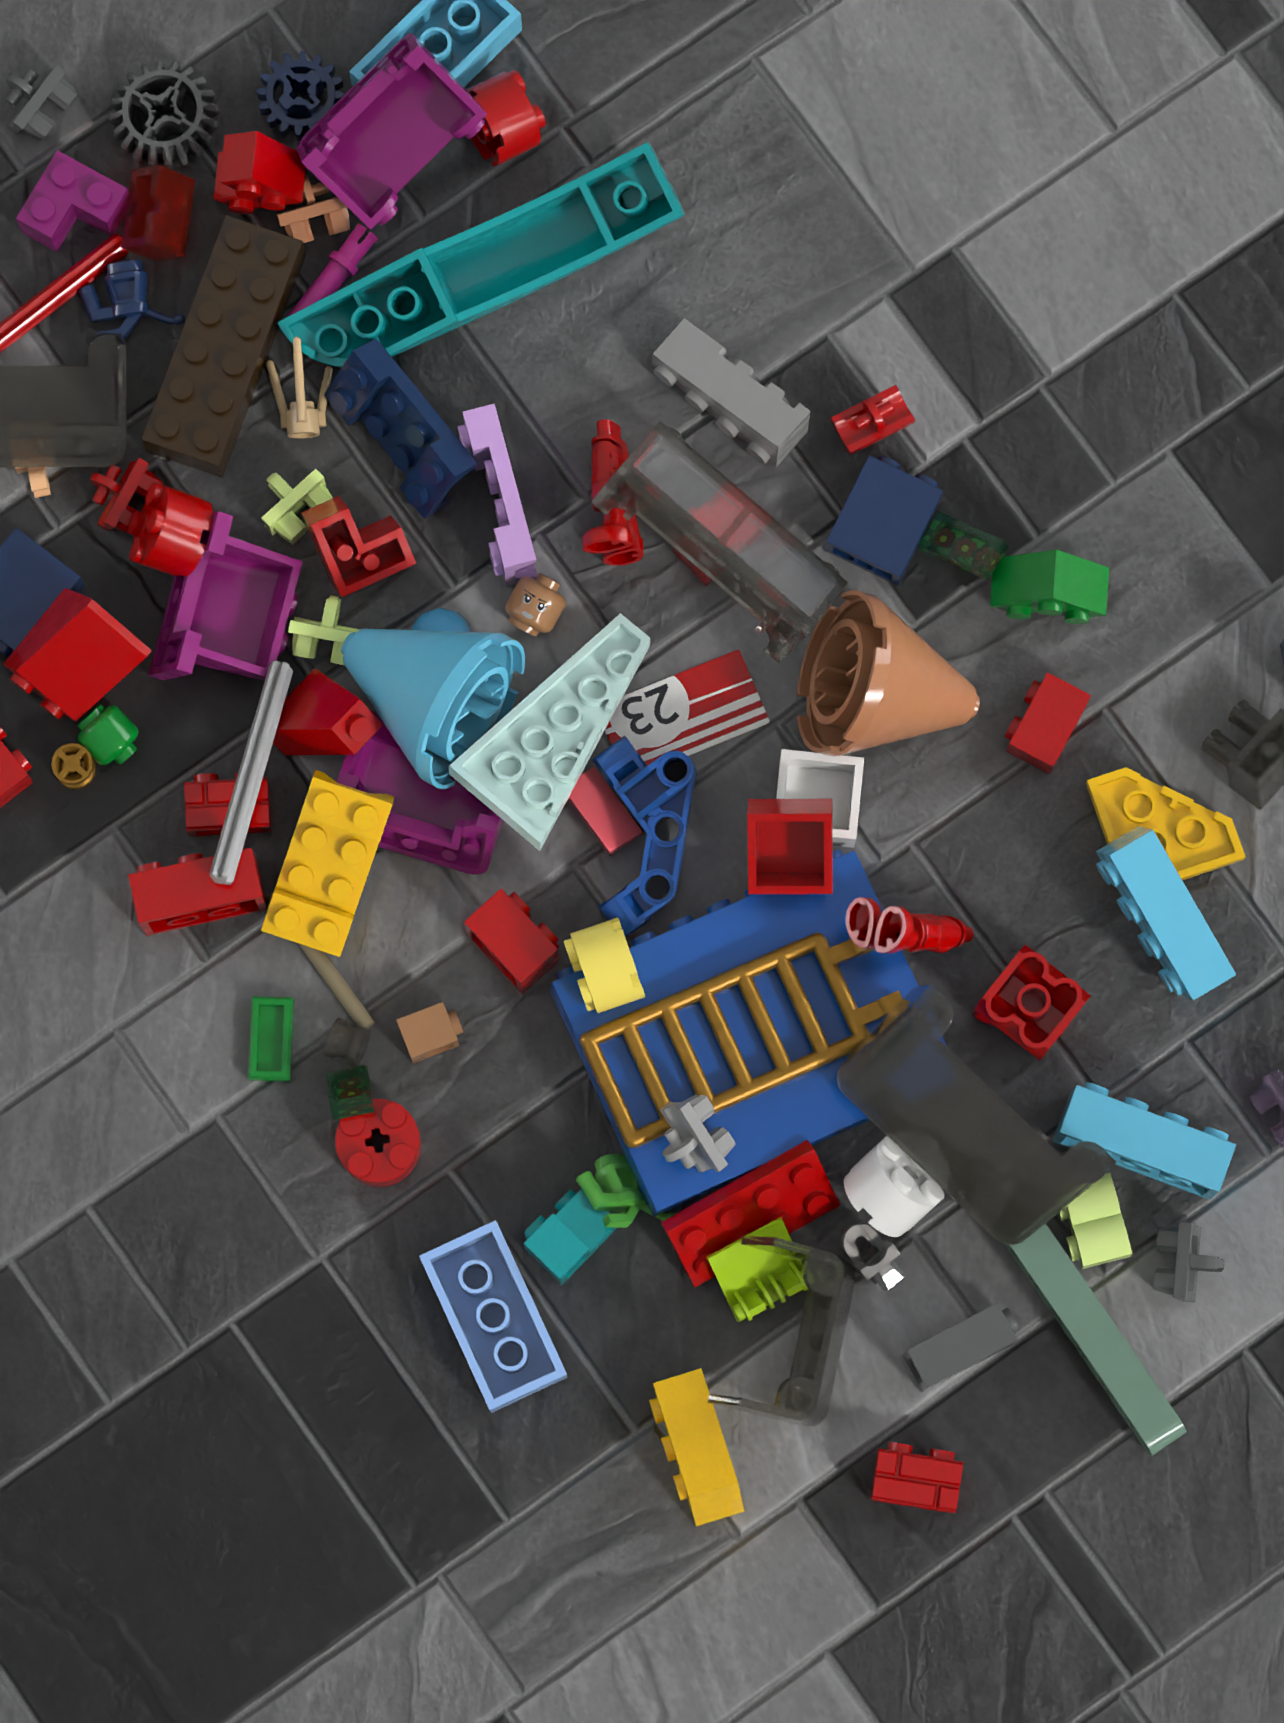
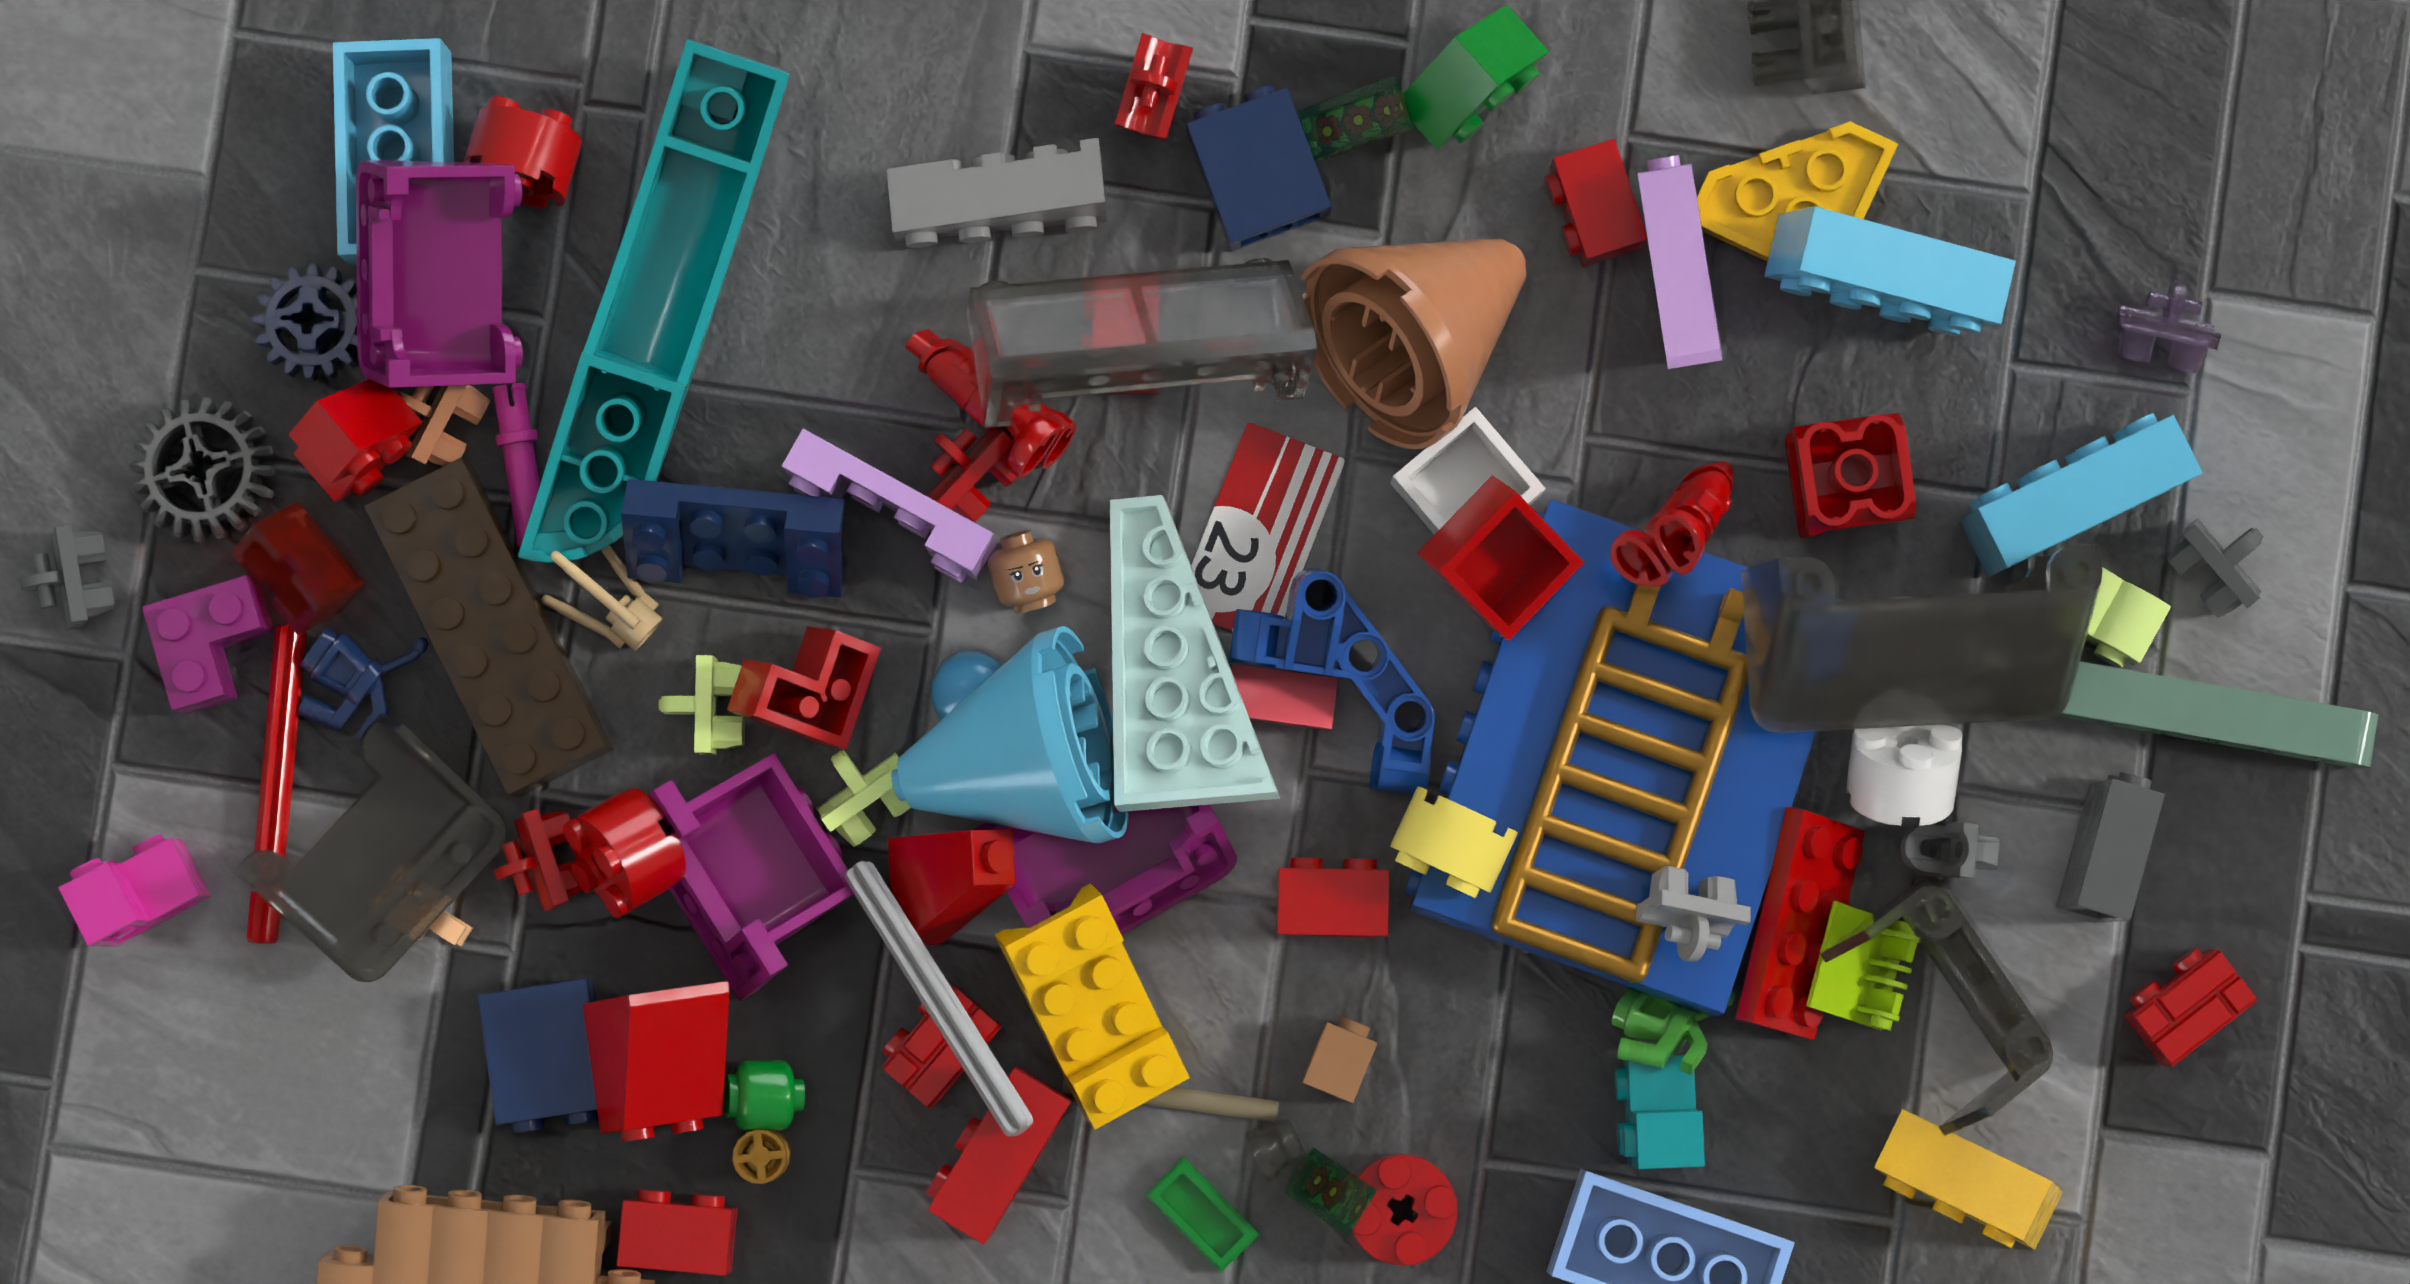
camera: 45 degrees left, 5 degrees up
(544, 525) = (957, 486): none -> red hips
(1055, 796) = (1679, 263): none -> lavender slope

